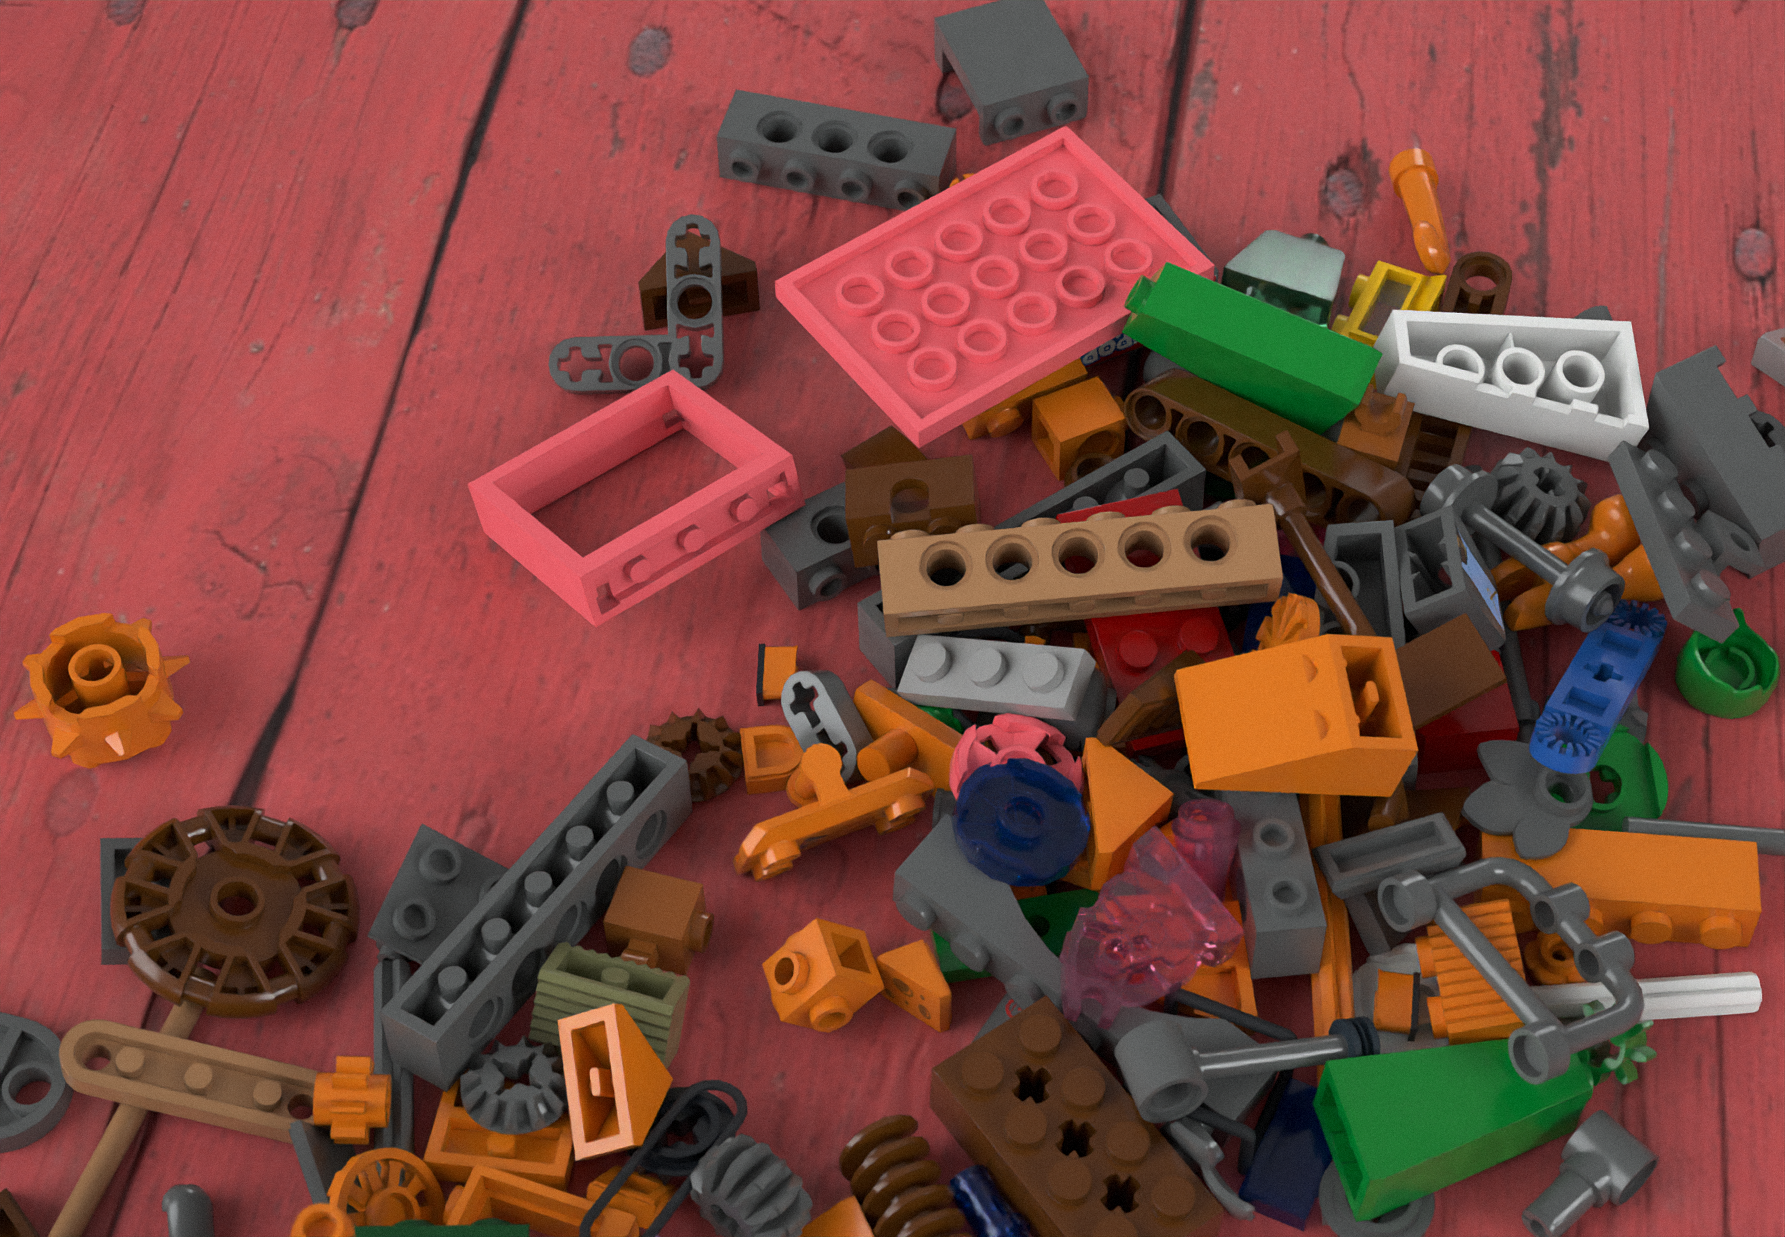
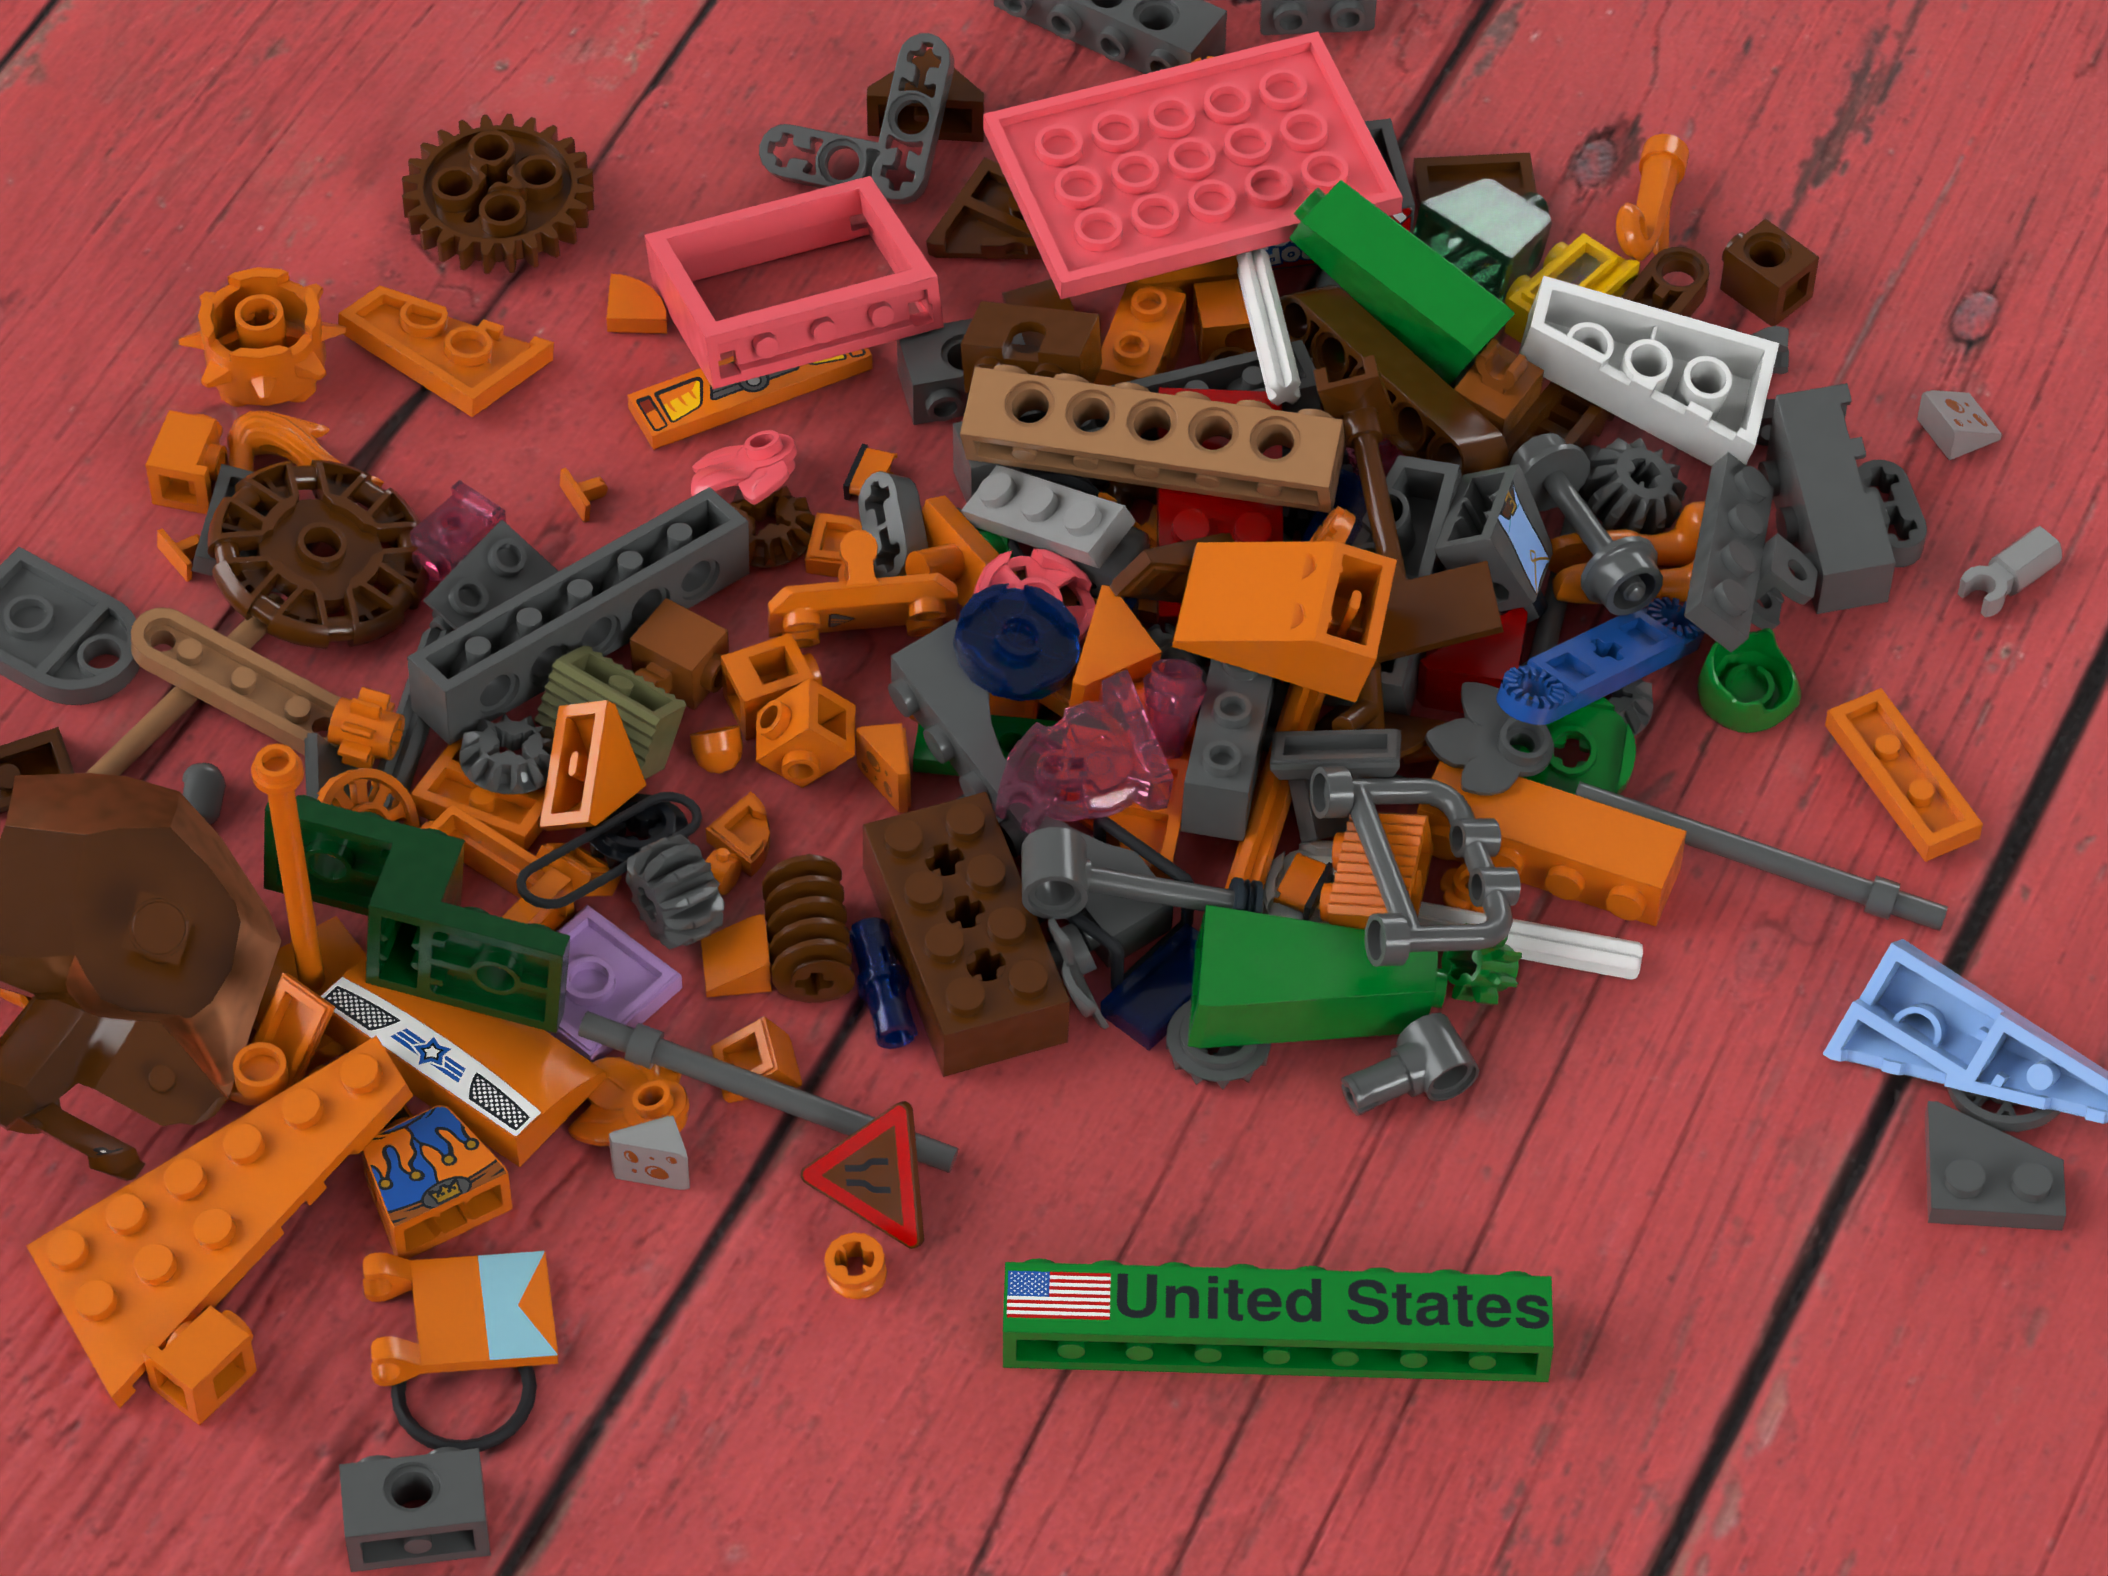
camera: 15 degrees right, 0 degrees up
(60, 845) = (186, 461): none -> orange brick
(81, 946) = (178, 553): none -> orange piece
(151, 789) = (277, 435): none -> orange piece
(299, 477) = (498, 193): none -> reddish brown gear
(303, 659) = (447, 356): none -> orange wing
(373, 849) = (453, 530): none -> clear pink brick
(476, 559) = (634, 307): none -> orange tile
(488, 770) = (582, 493): none -> orange piece
(571, 646) = (691, 405): none -> orange tile
(662, 694) = (755, 467): none -> coral plate
(730, 1013) = (717, 748): none -> orange hinge
(756, 925) = (763, 674): none -> orange brick
(787, 1146) = (725, 869): none -> orange piece
(789, 1103) = (743, 832): none -> orange tile
(802, 385) = (983, 221): none -> reddish brown wing
(1003, 463) = (1143, 334): none -> orange brick
(1137, 427) = (1268, 327): none -> white axle
(1229, 234) = (1442, 174): none -> reddish brown tile
(1558, 256) = (1768, 272): none -> reddish brown brick

